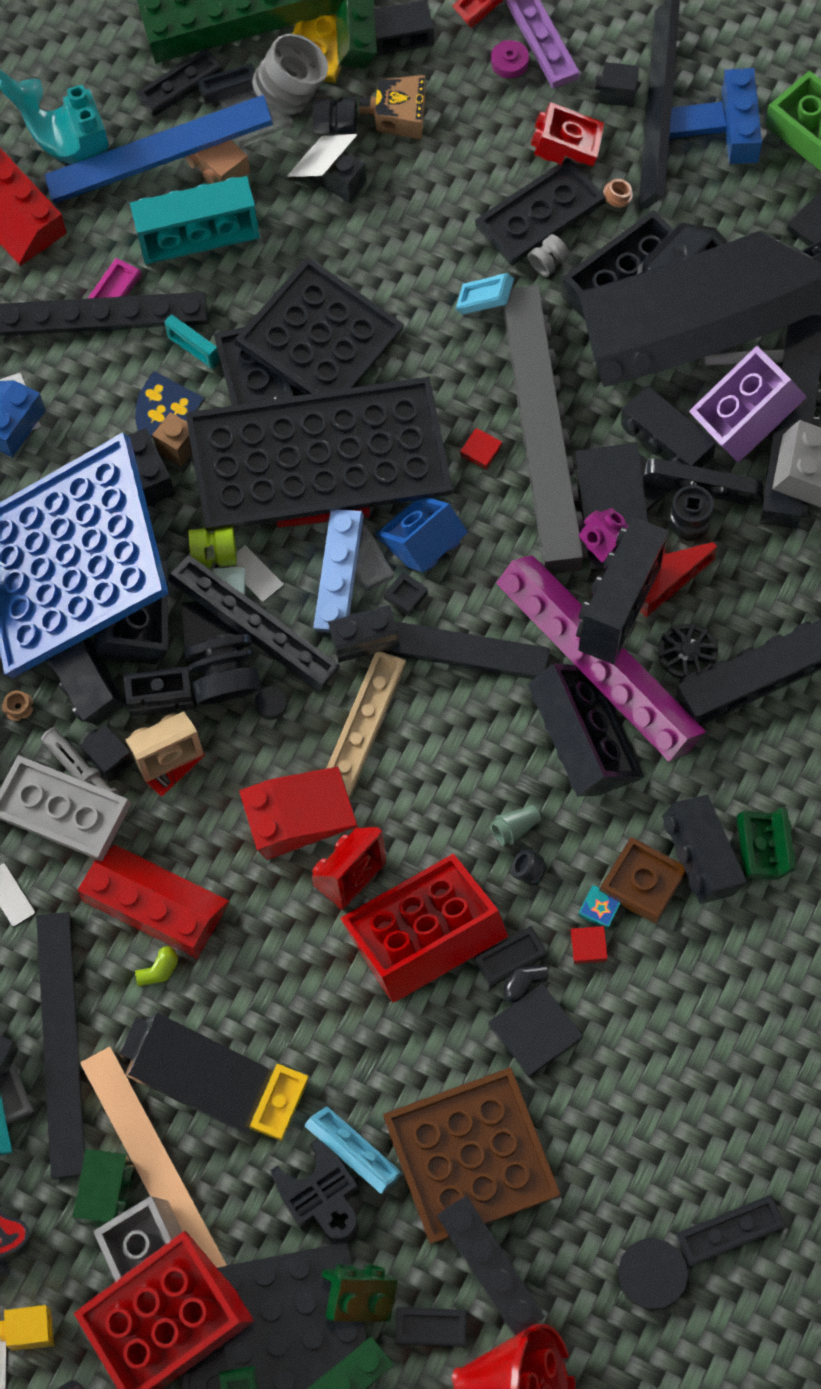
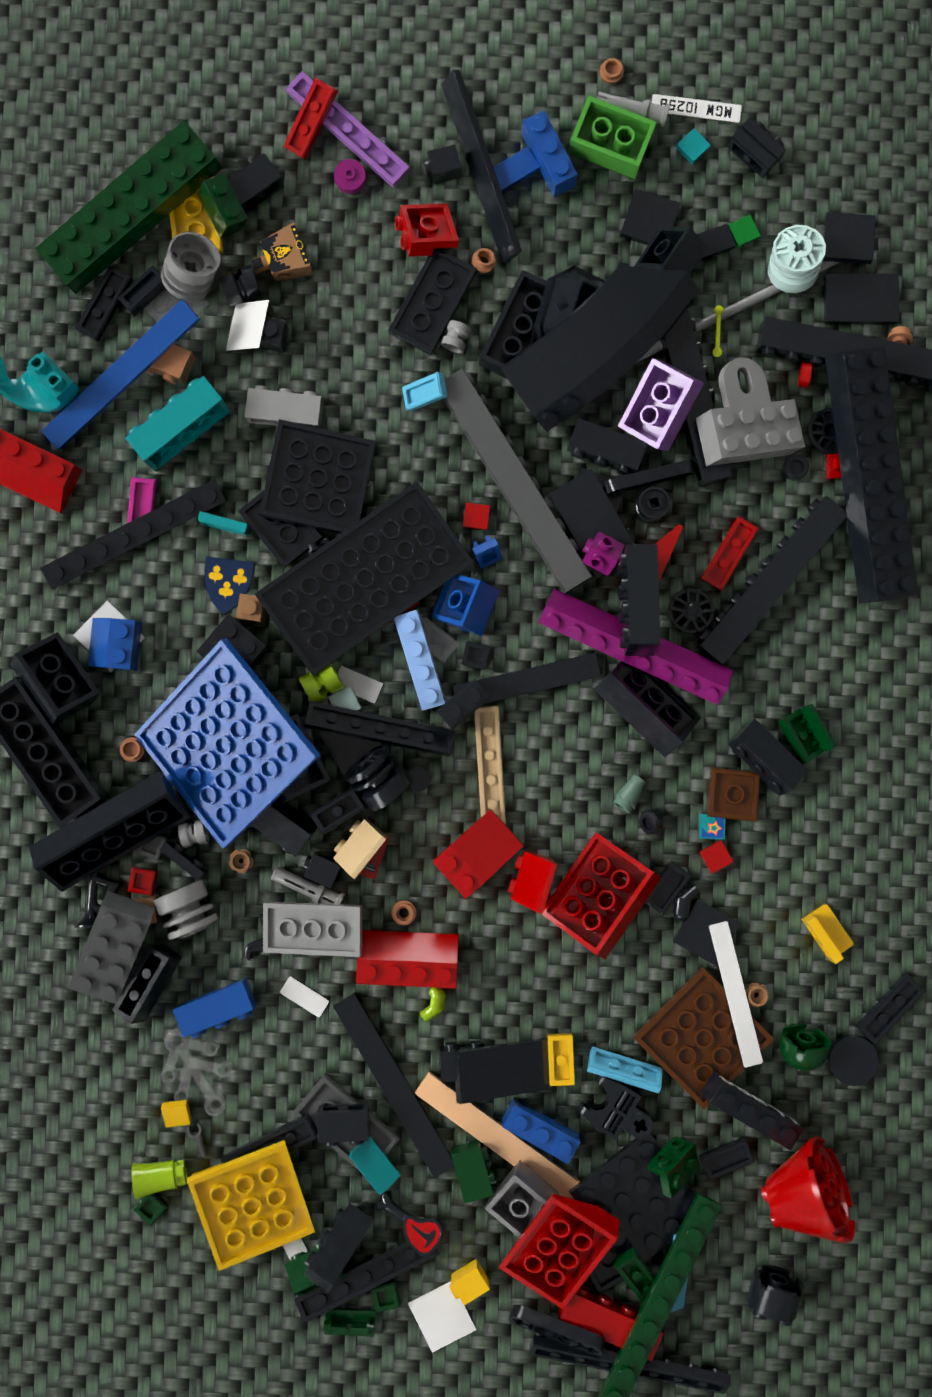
camera: 30 degrees left, 20 degrees up
(173, 837) = (403, 920): none -> nougat plate
(211, 1175) = (540, 1130): none -> blue brick
(300, 239) = (269, 406): none -> light grey brick
(474, 489) = (487, 552): none -> blue tile
(536, 1118) = (735, 994): none -> white sticker
(563, 1125) = (762, 997): none -> medium nougat plate
(592, 1222) = (803, 1047): none -> dark green cylinder
(690, 1098) = (828, 933): none -> yellow panel
(763, 607) = (729, 553): none -> red tile

